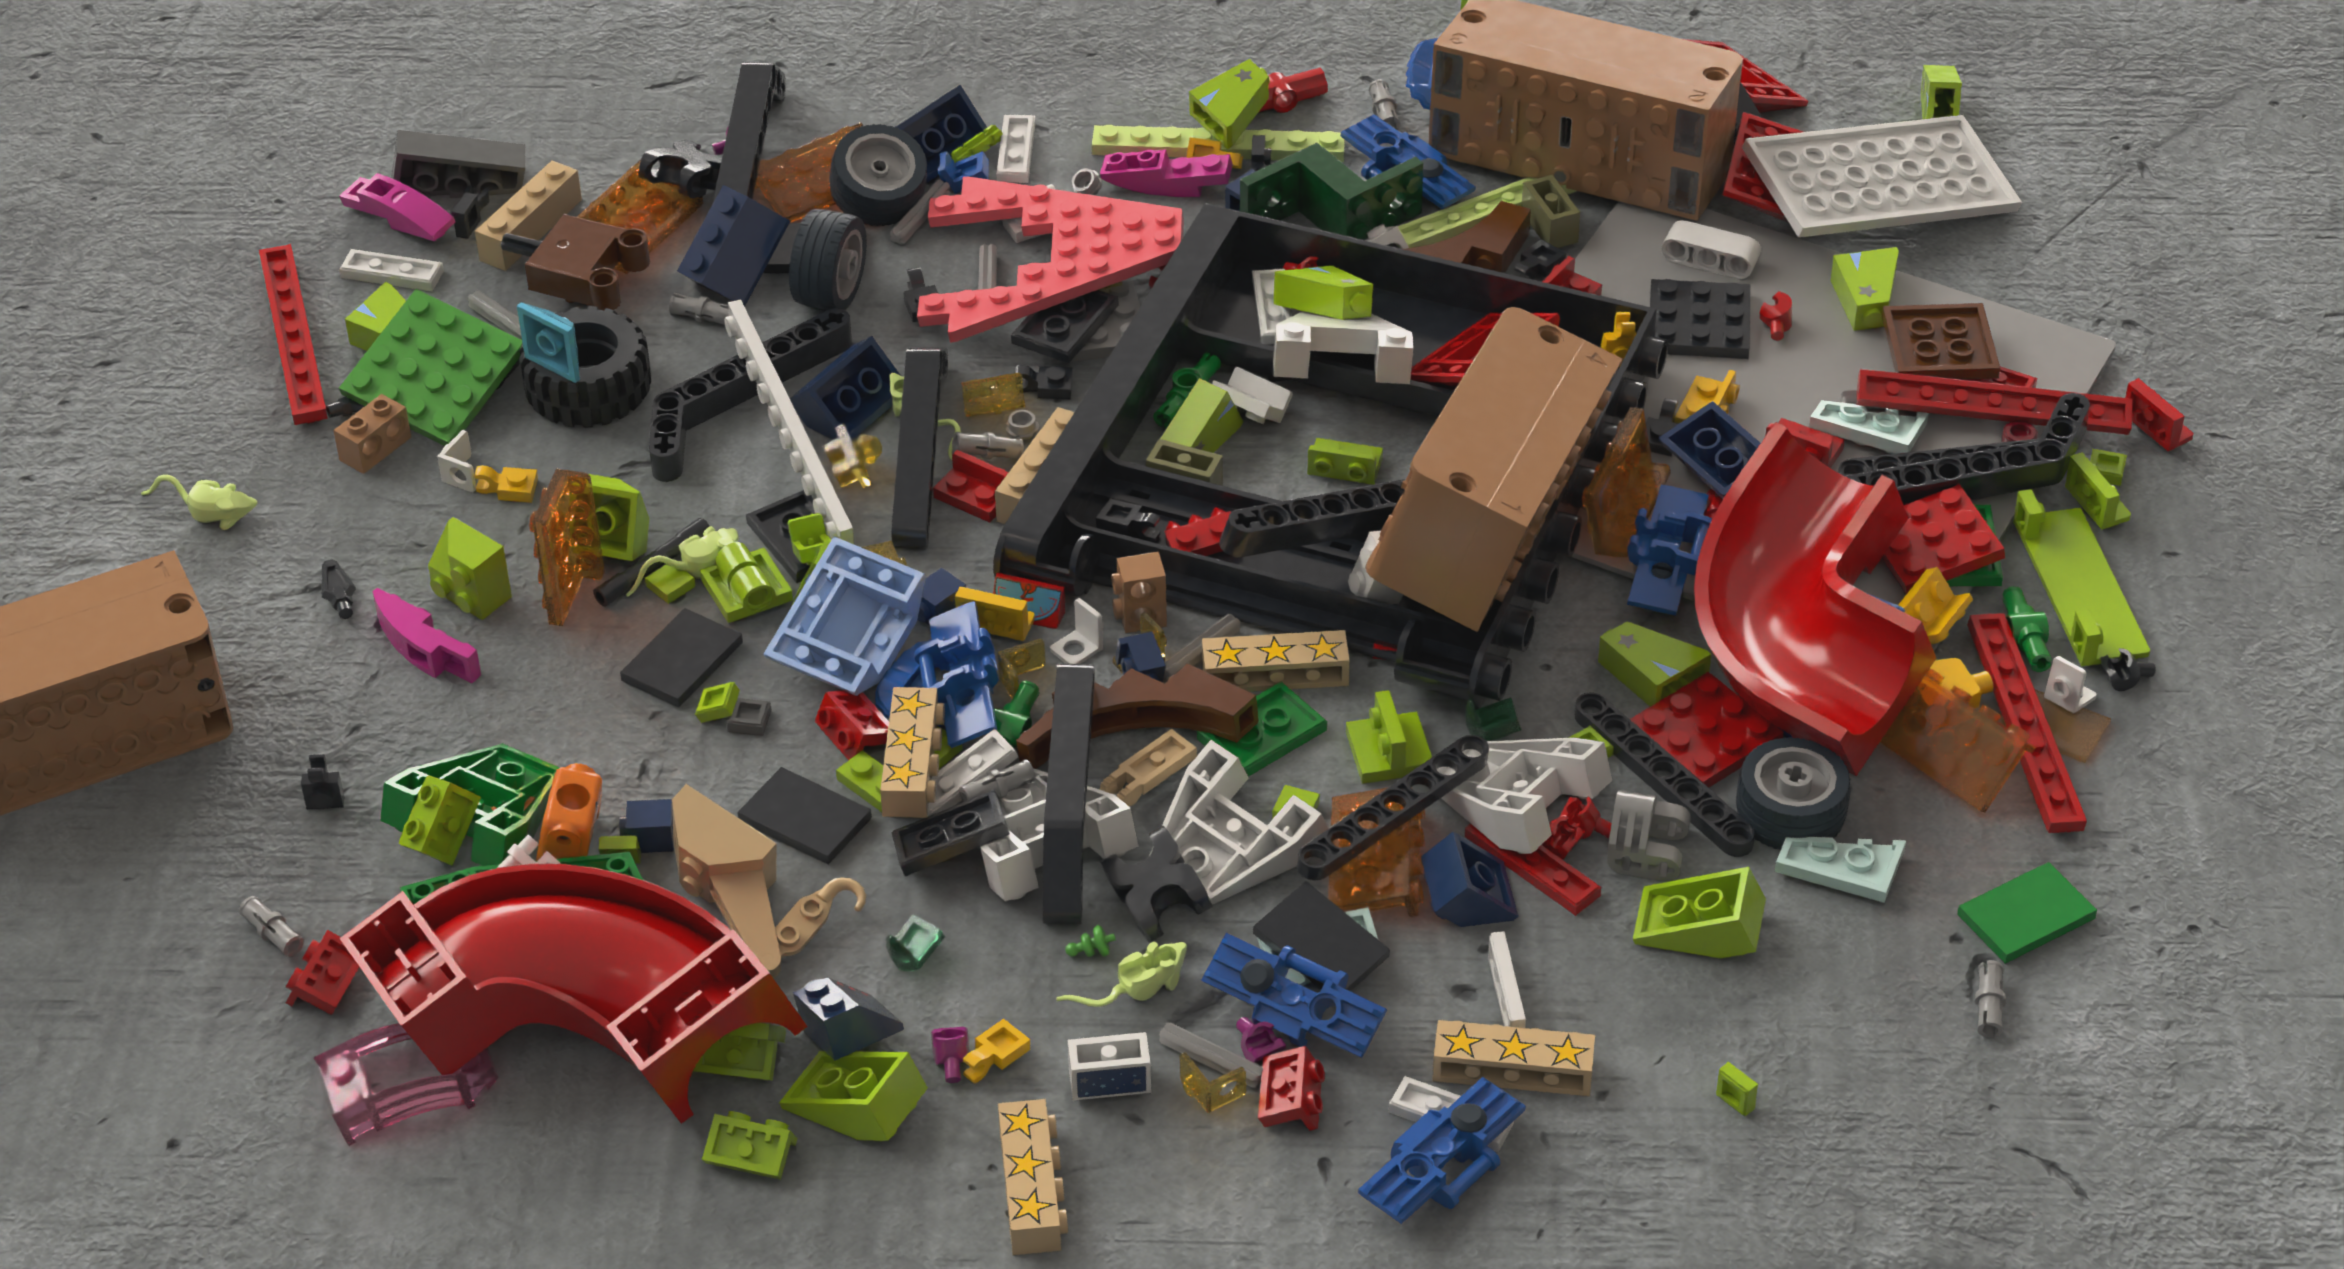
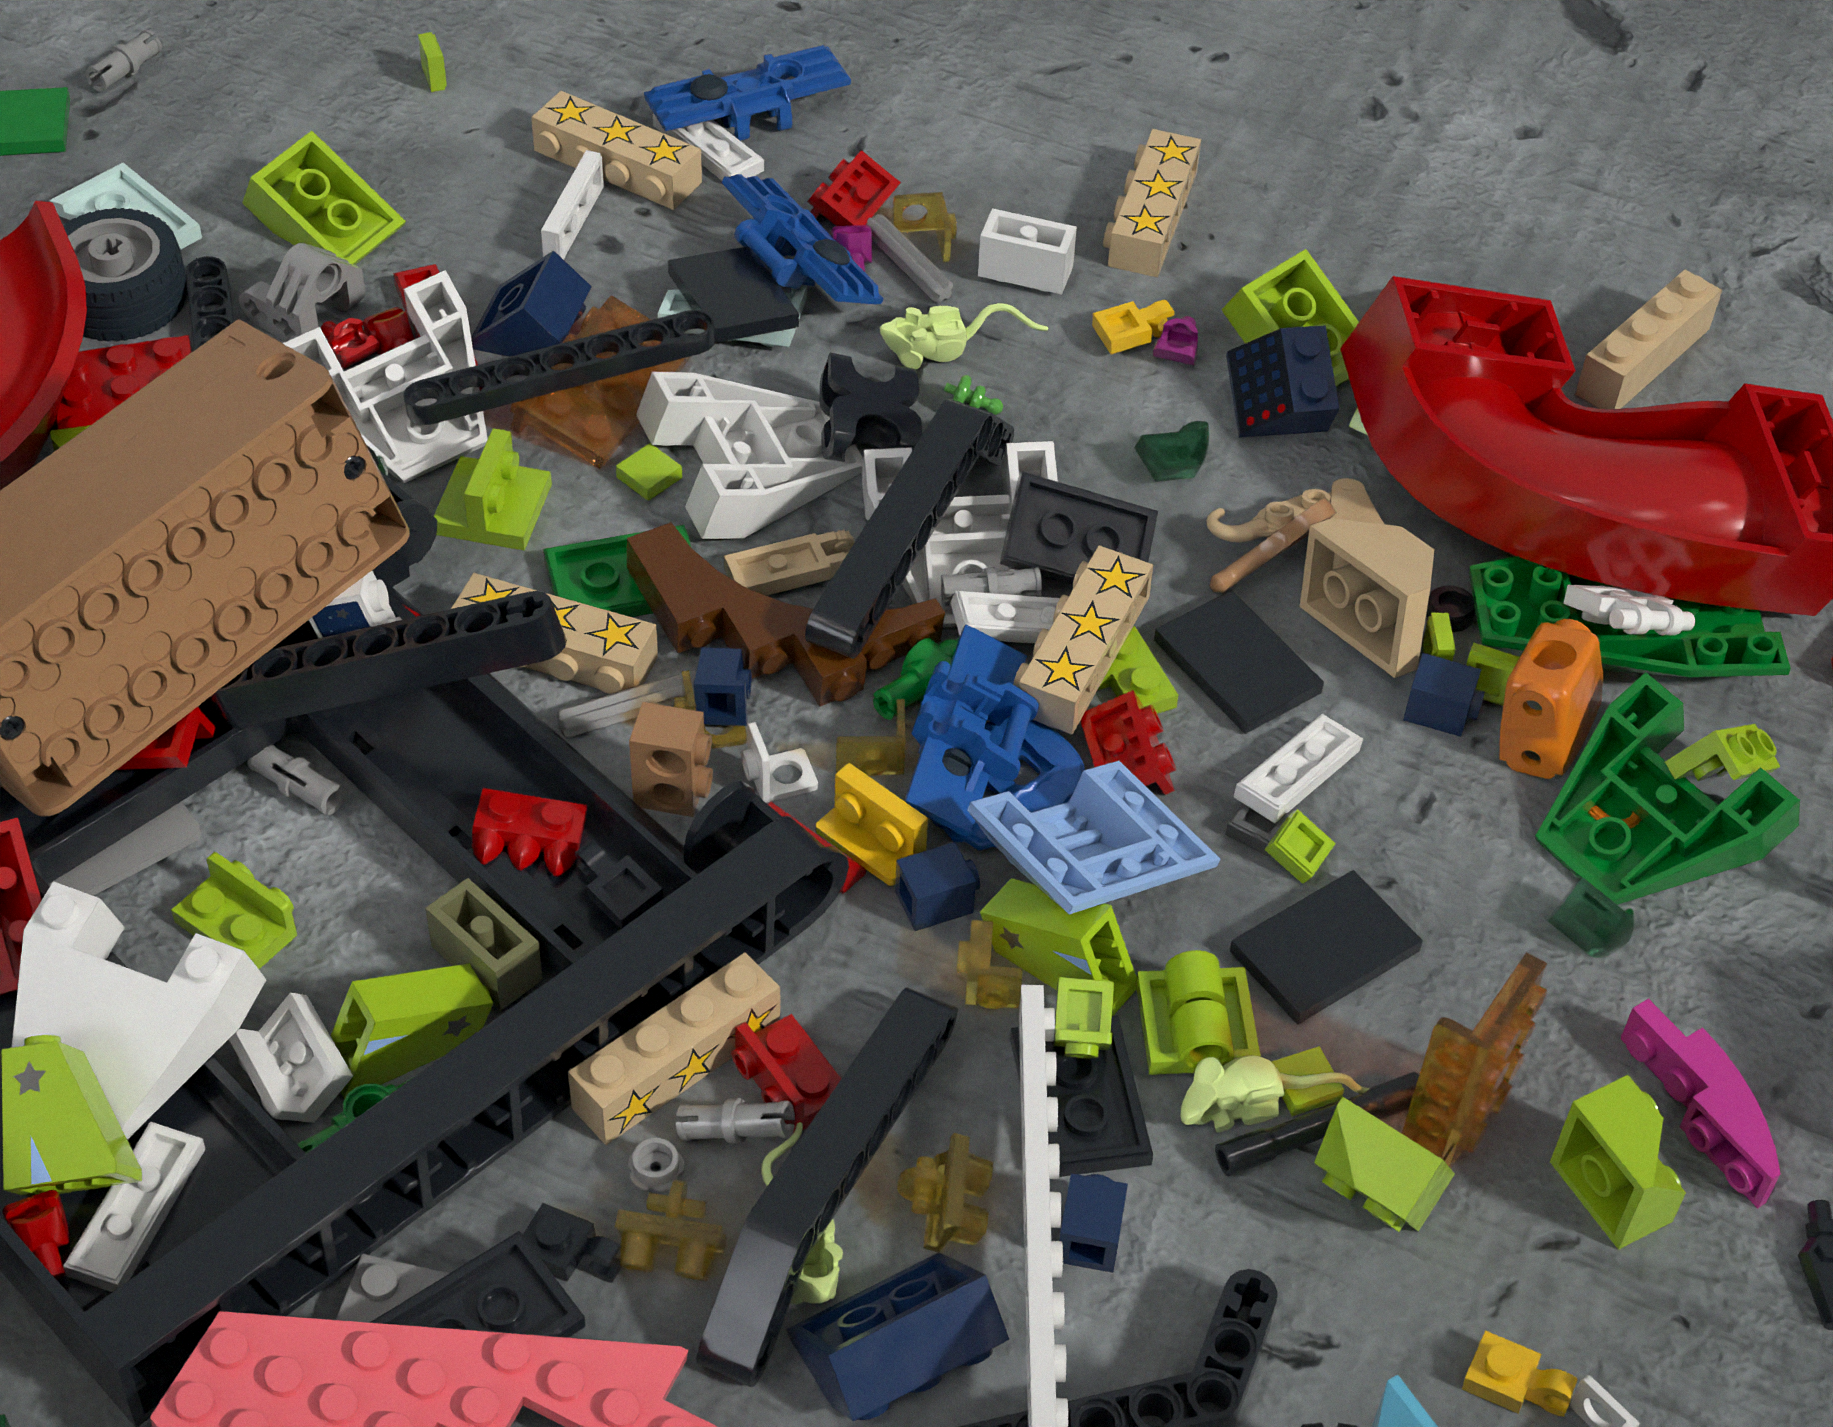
camera: 160 degrees left, 5 degrees up
(510, 717) = (1593, 920): none -> clear green plate
(553, 1180) = (1648, 341): none -> tan brick
(662, 859) = (1438, 637): none -> lime tile
(735, 748) = (1298, 768): none -> white tile
(766, 468) = (1092, 1221): none -> dark blue brick
(790, 880) = (1272, 546): none -> medium nougat piece

